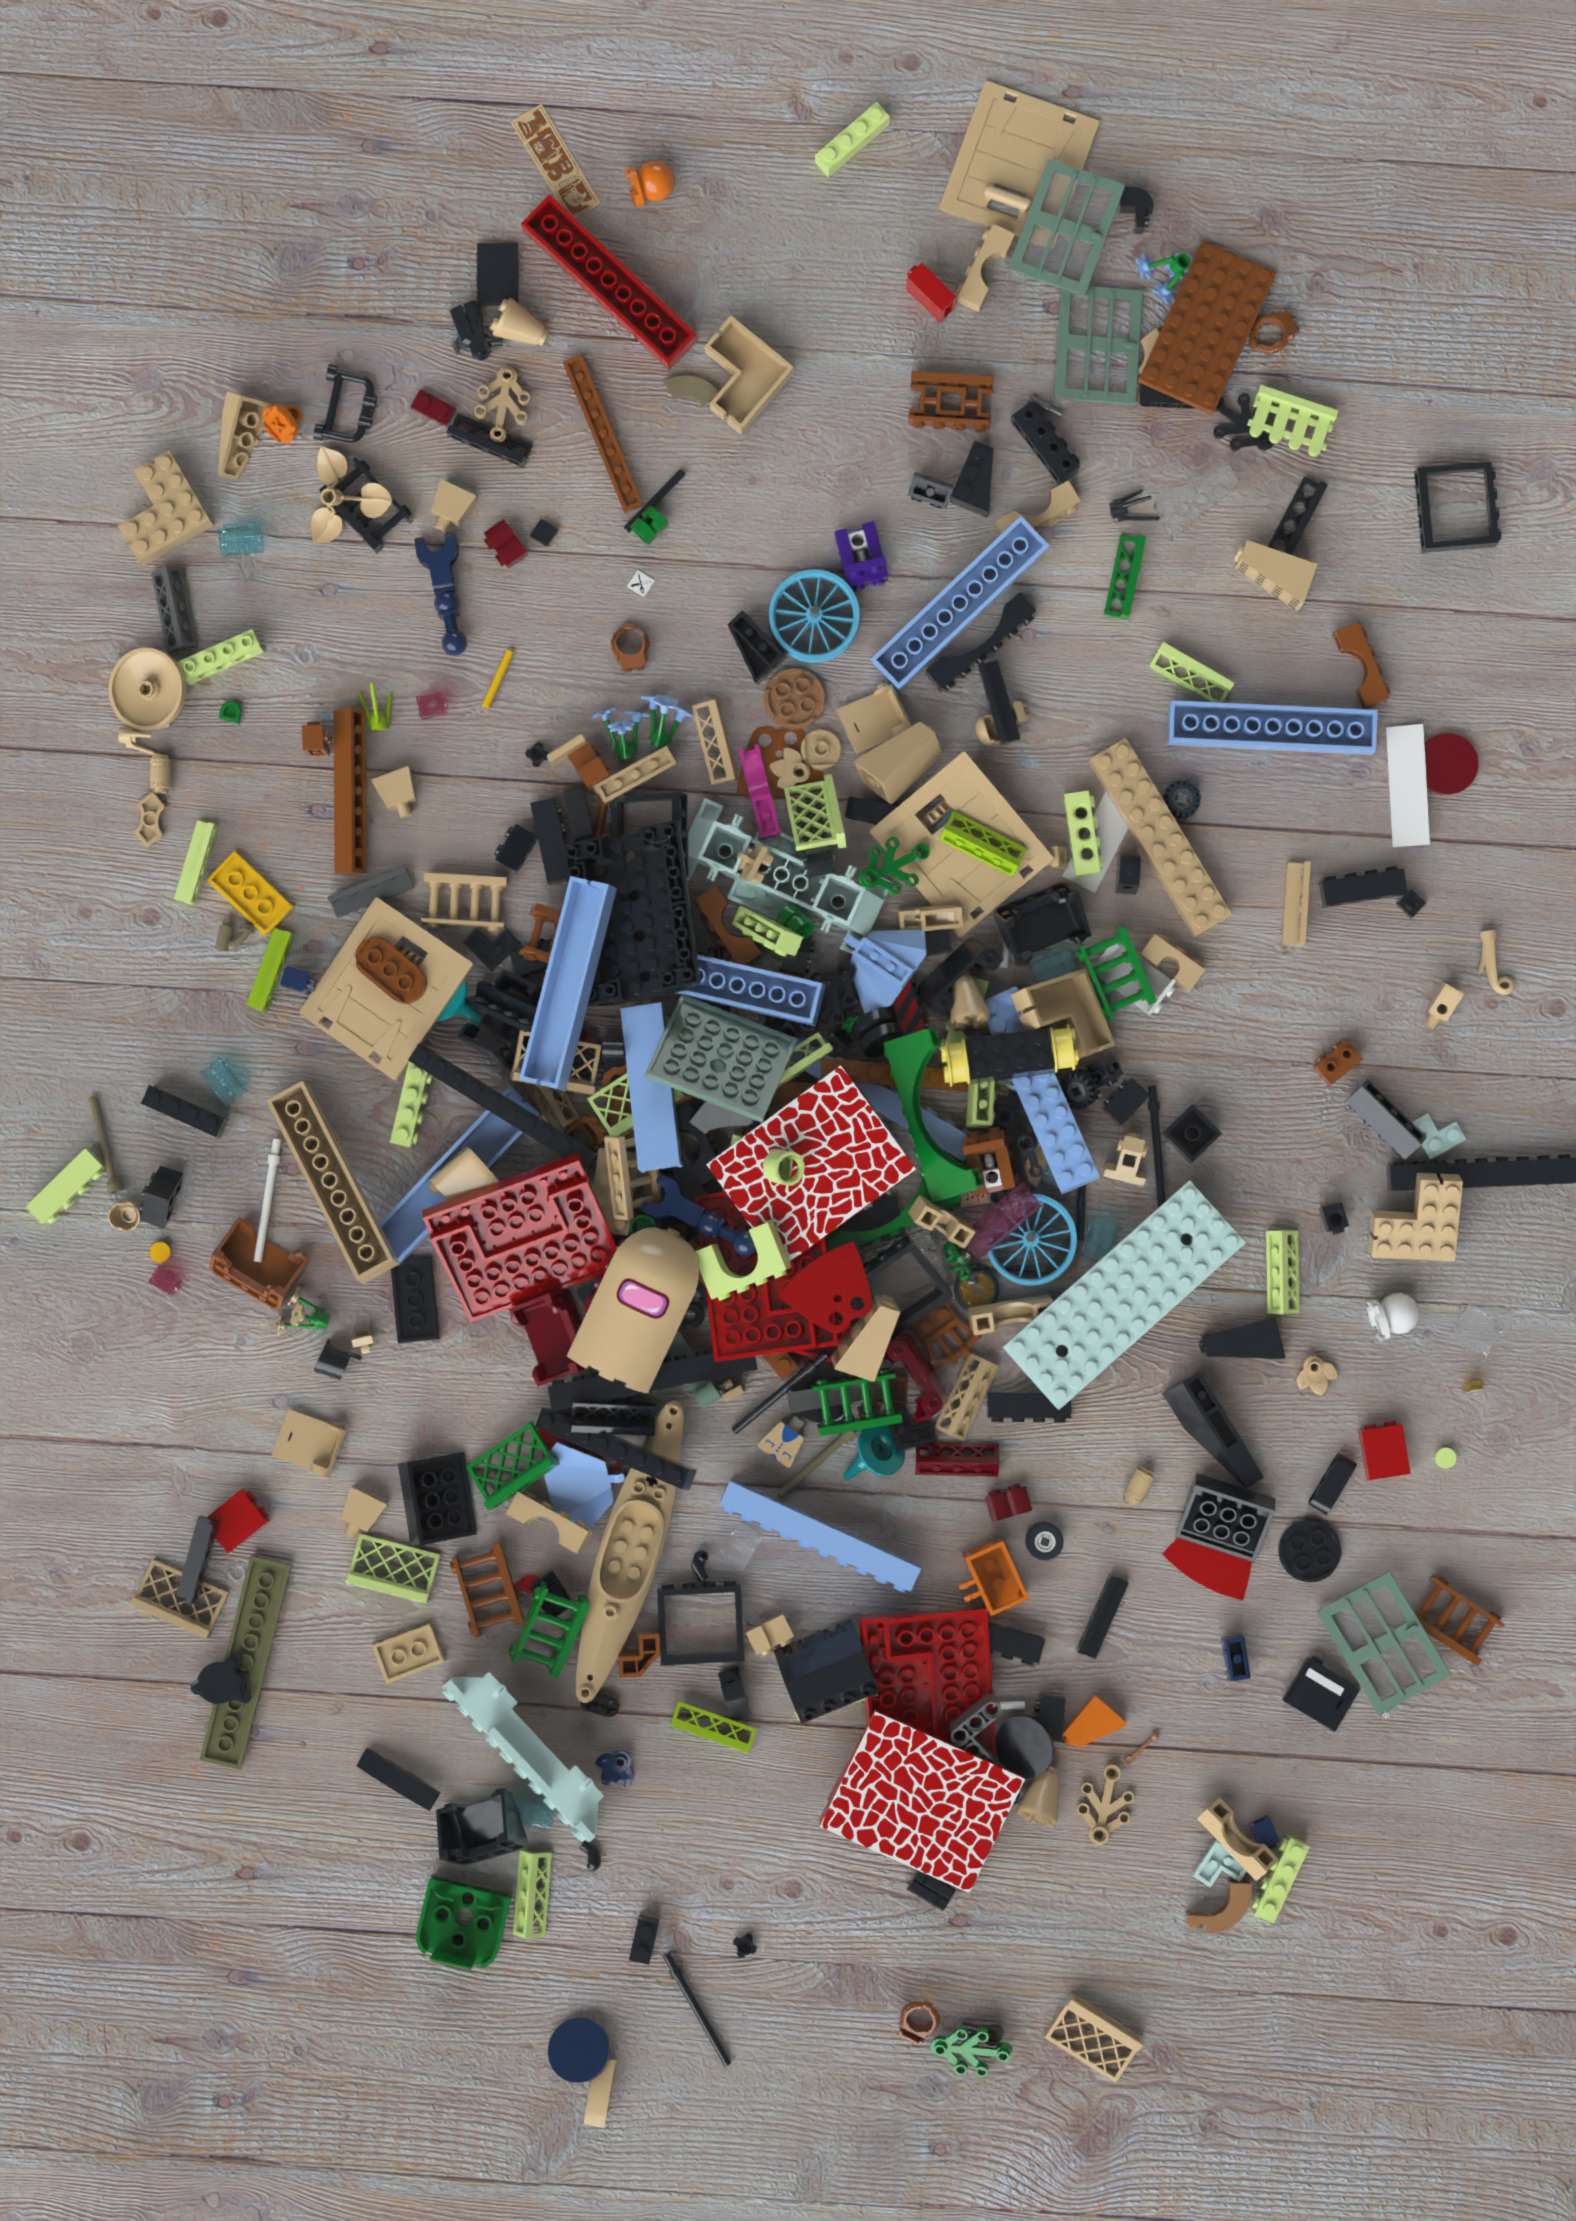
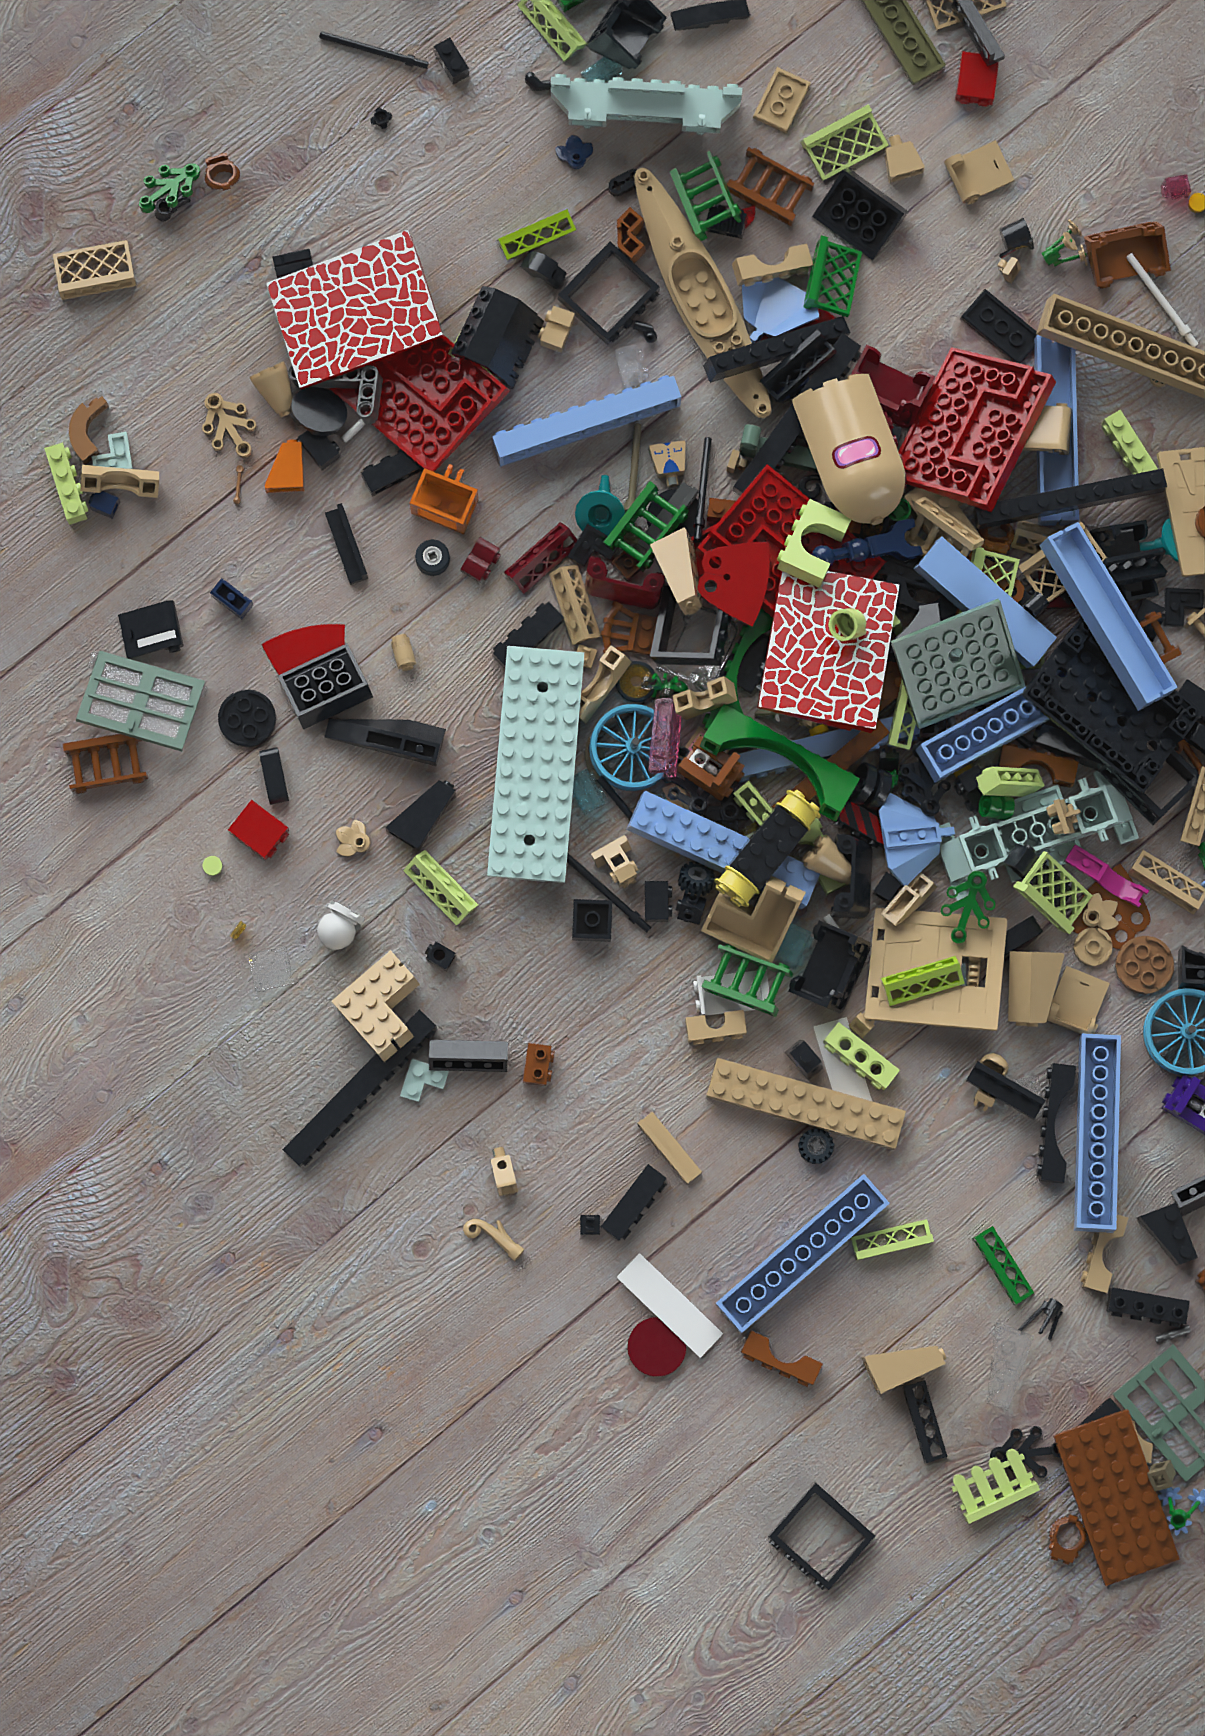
camera: 130 degrees right, 5 degrees down
(995, 1348) = (589, 655): none -> tan tile
(1157, 310) = (1161, 1475): none -> dark tan brick

